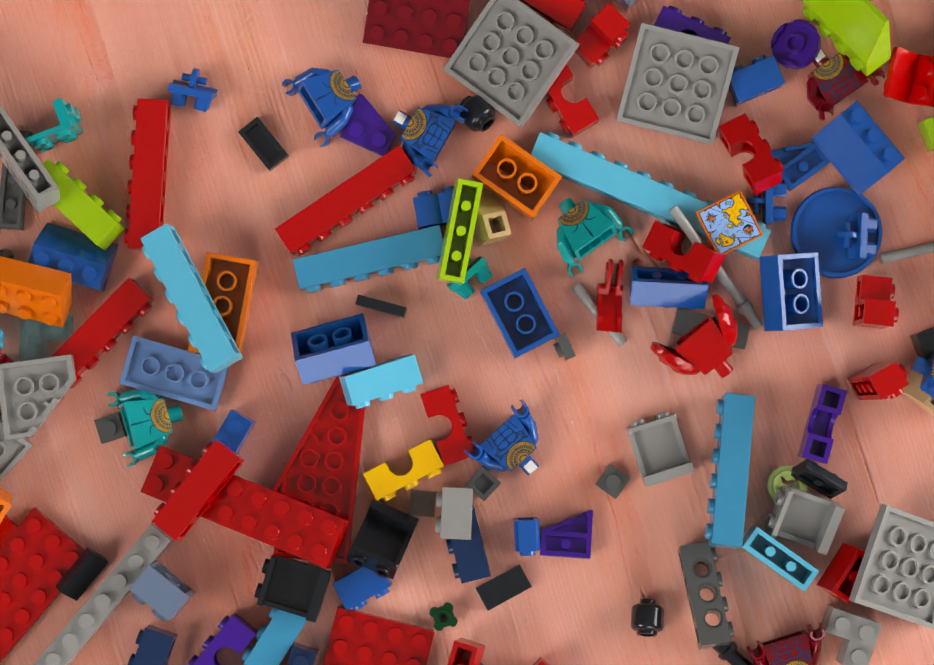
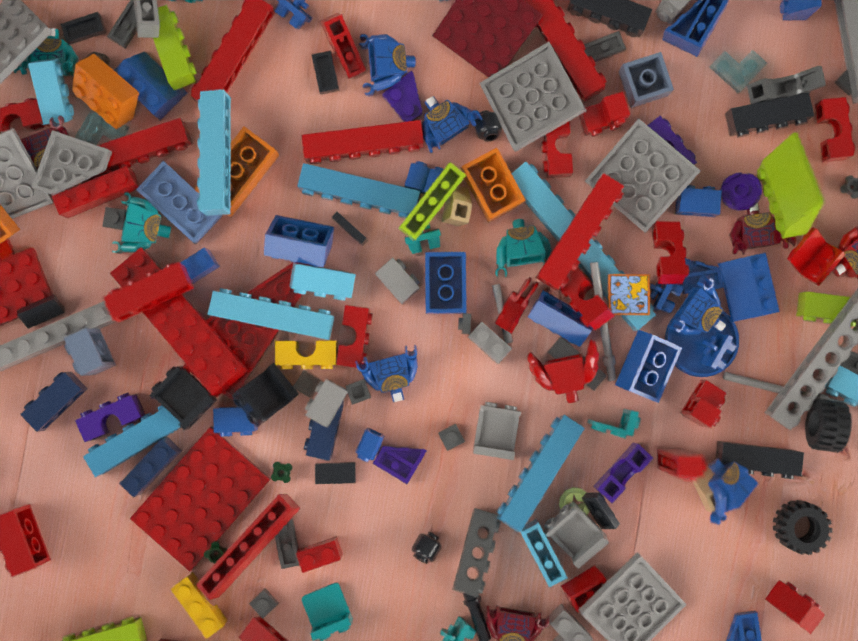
camera: 25 degrees right, 0 degrees up
(76, 409) = (96, 192): none -> red brick
(268, 103) = (343, 44): none -> red slope
(344, 447) = (271, 315): none -> medium azure brick
(464, 337) = (397, 280): none -> light grey brick
(602, 354) = (489, 342): none -> light grey brick
(640, 182) = (580, 231): none -> red brick
(800, 366) = (628, 423): none -> teal bracket
(816, 202) = (699, 311): none -> blue torso

